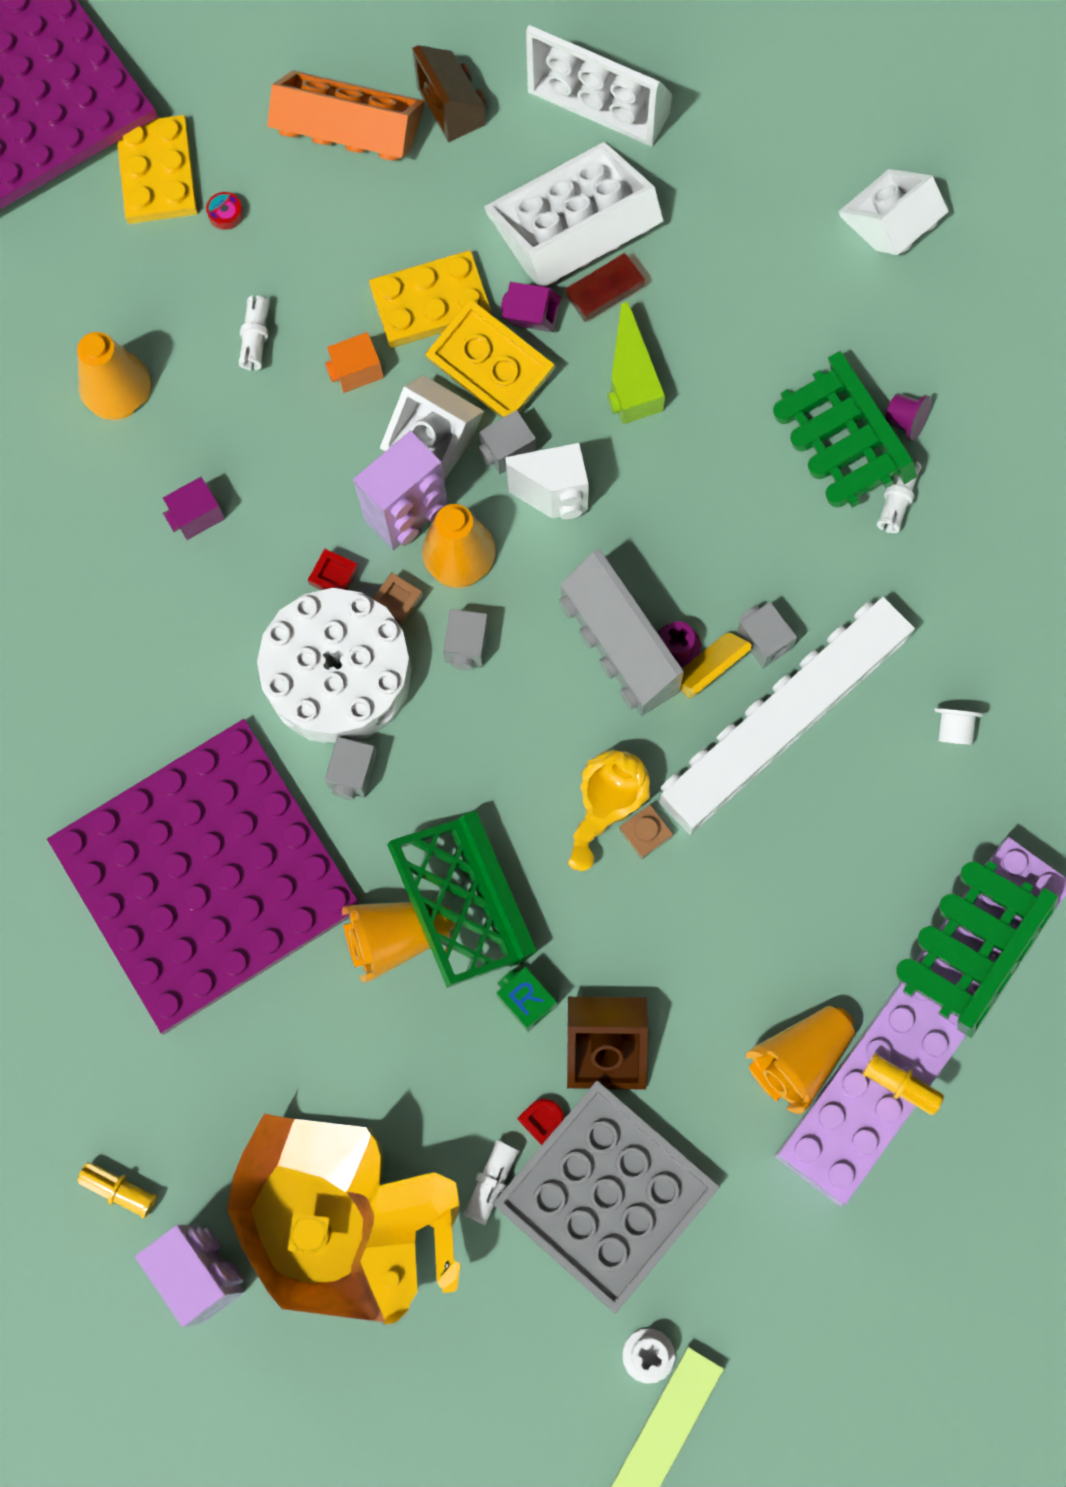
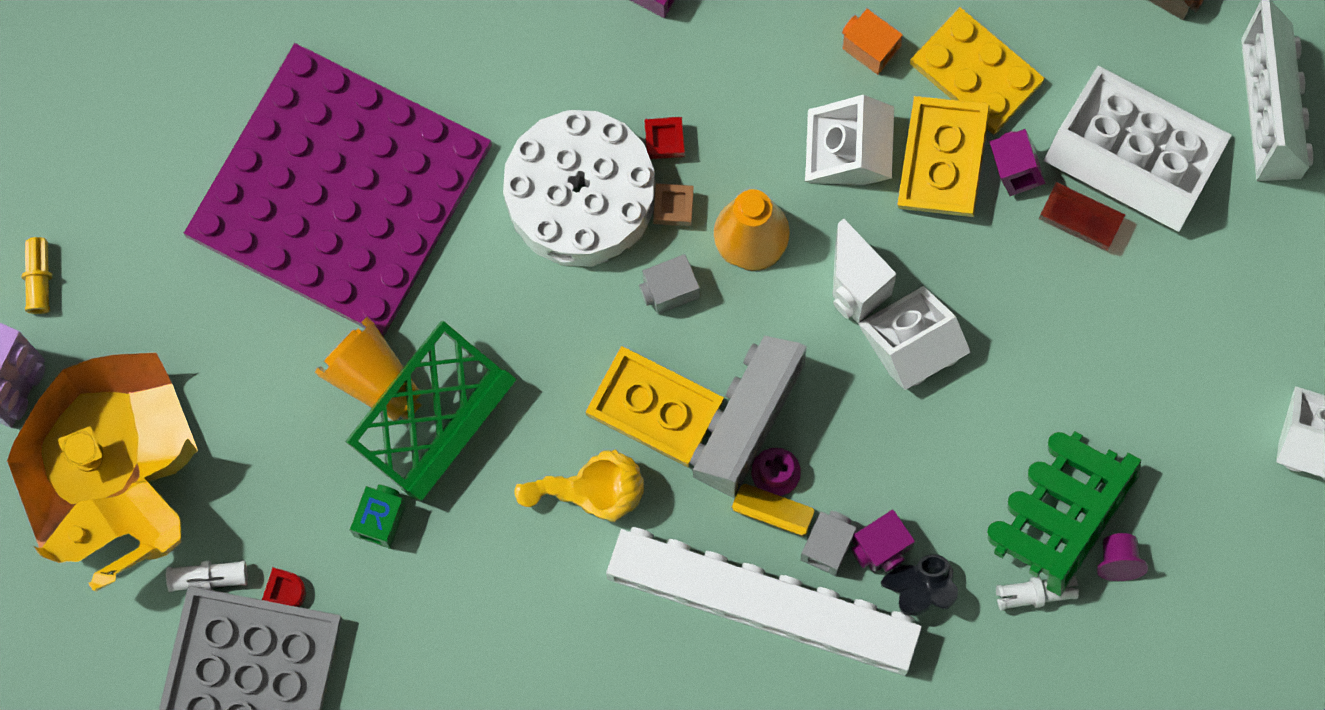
camera: 60 degrees right, 0 degrees up
(350, 768) = (496, 254): light grey brick -> none
(401, 490) = (763, 150): lavender brick -> none
(504, 439) = (875, 215): light grey brick -> none
(564, 711) = (654, 406): none -> yellow plate
(607, 1042) = (379, 605): reddish brown slope -> none
(630, 469) = (915, 337): none -> white slope
(634, 382) = (1009, 286): lime slope -> none
(645, 832) = (586, 538): medium nougat plate -> none
(791, 590) = (882, 543): none -> magenta brick
(845, 579) = (923, 585): none -> black plate

